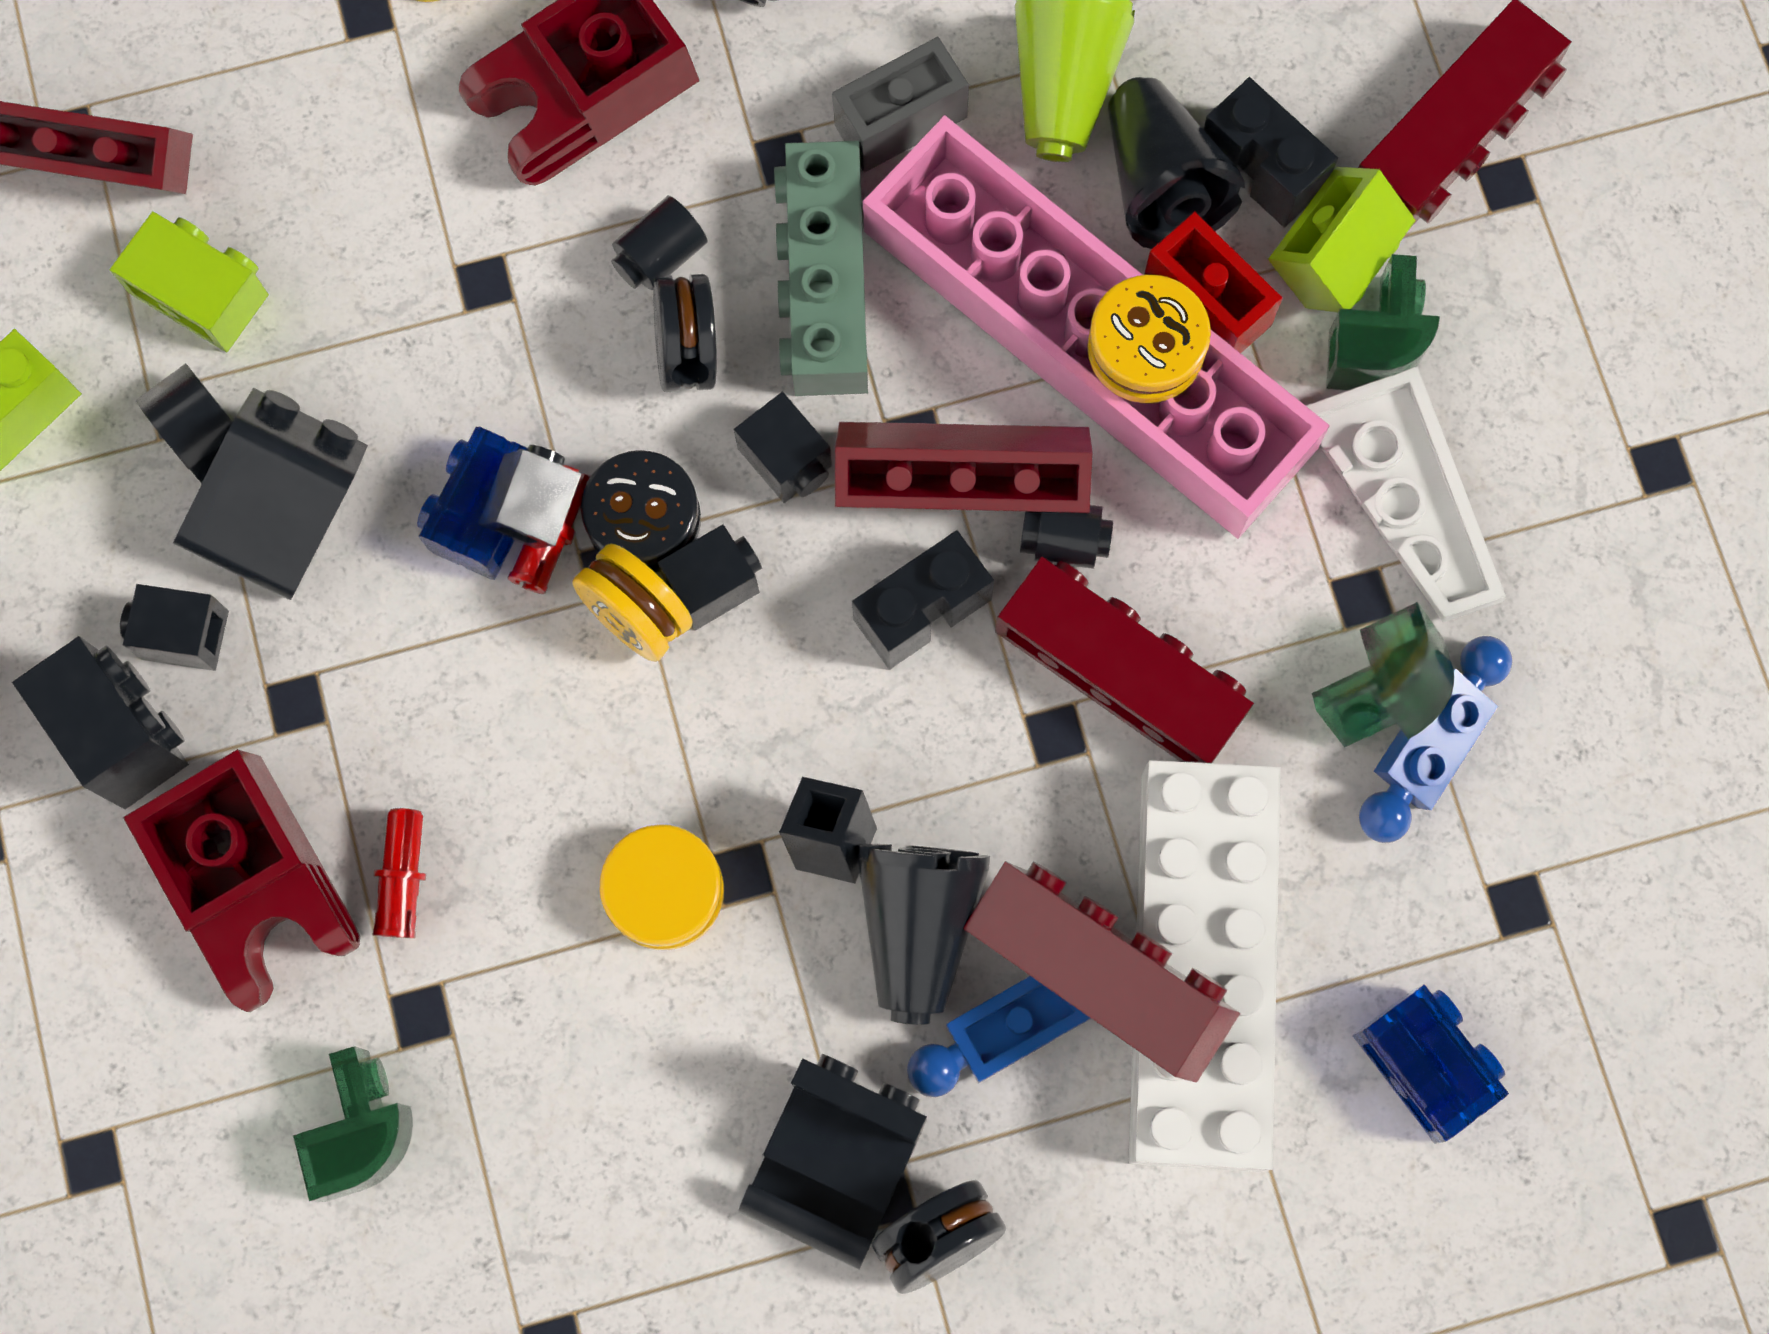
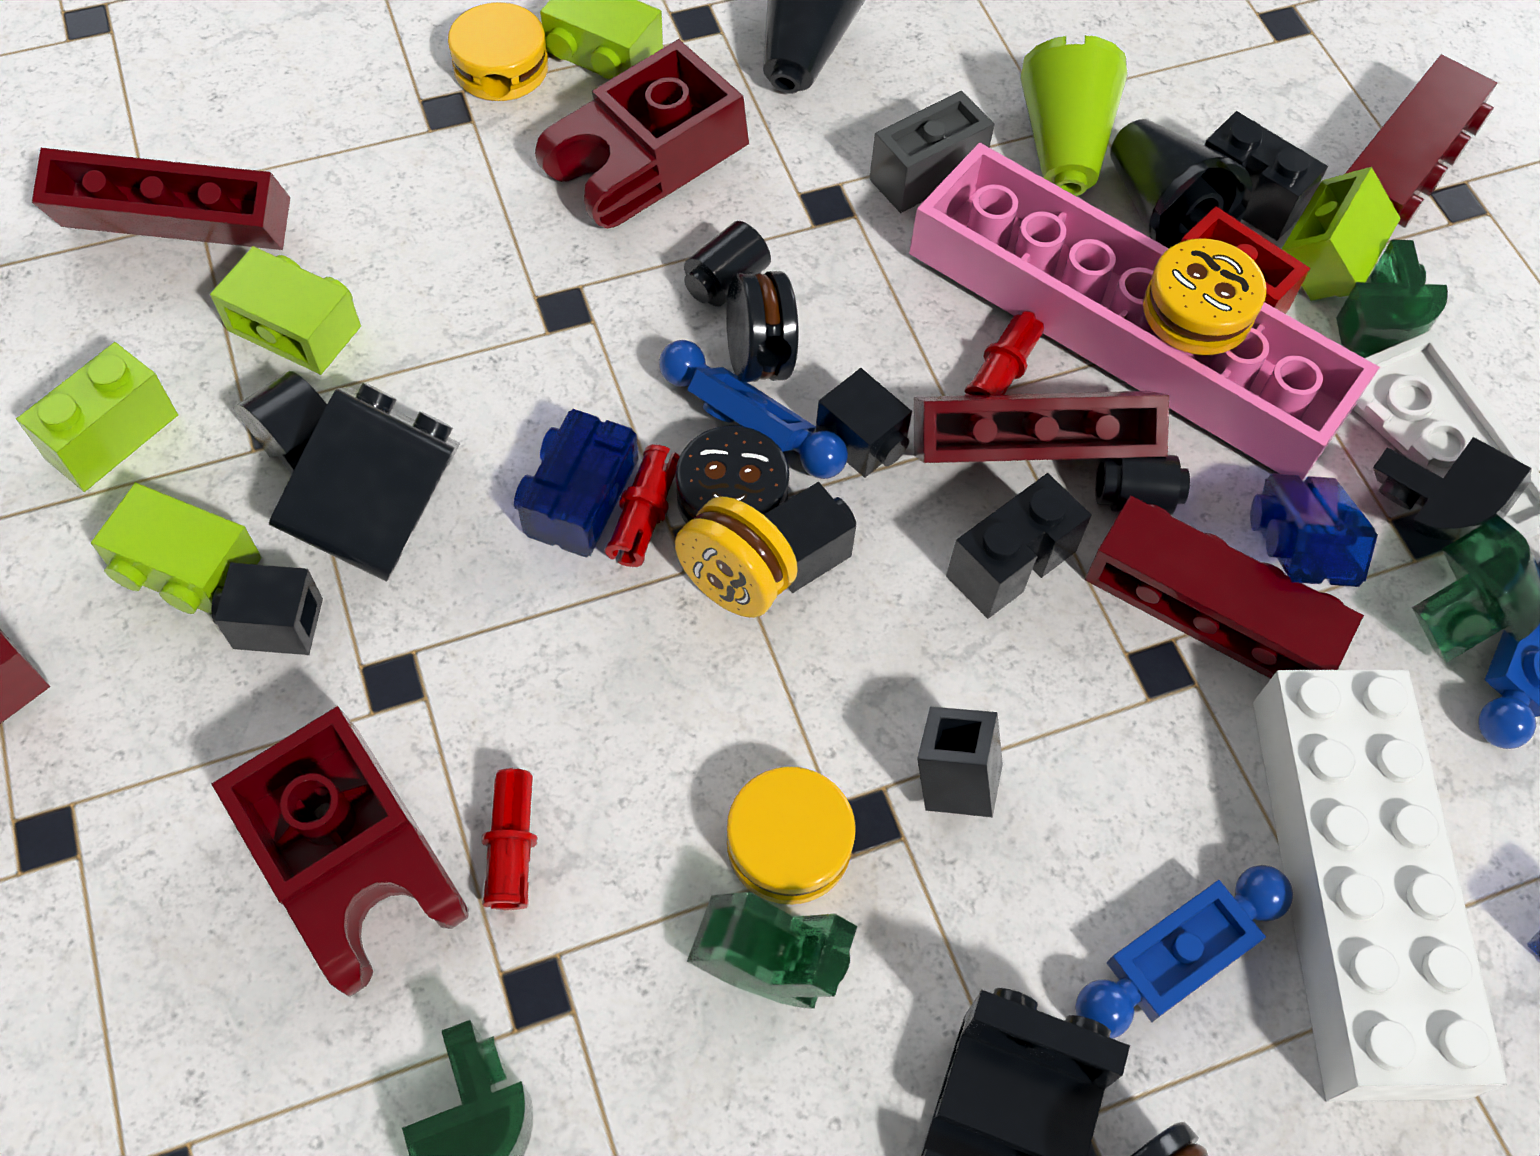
camera: 10 degrees left, 15 degrees down
(81, 557) = (171, 548): none -> lime brick
(102, 721) = (191, 690): black brick -> none
(530, 497) = (630, 461): brick -> none
(629, 997) = (771, 951): none -> clear green brick
(669, 424) = (731, 400): none -> blue plate
(824, 269) = (882, 279): sand green brick -> none
(916, 922) = (1068, 849): black cone -> none
(948, 373) = (1007, 356): none -> red axle
(1102, 971) = (1289, 877): dark red brick -> none
(1222, 605) = (1314, 530): none -> clear blue brick
(1403, 570) = (1470, 494): none -> black brick

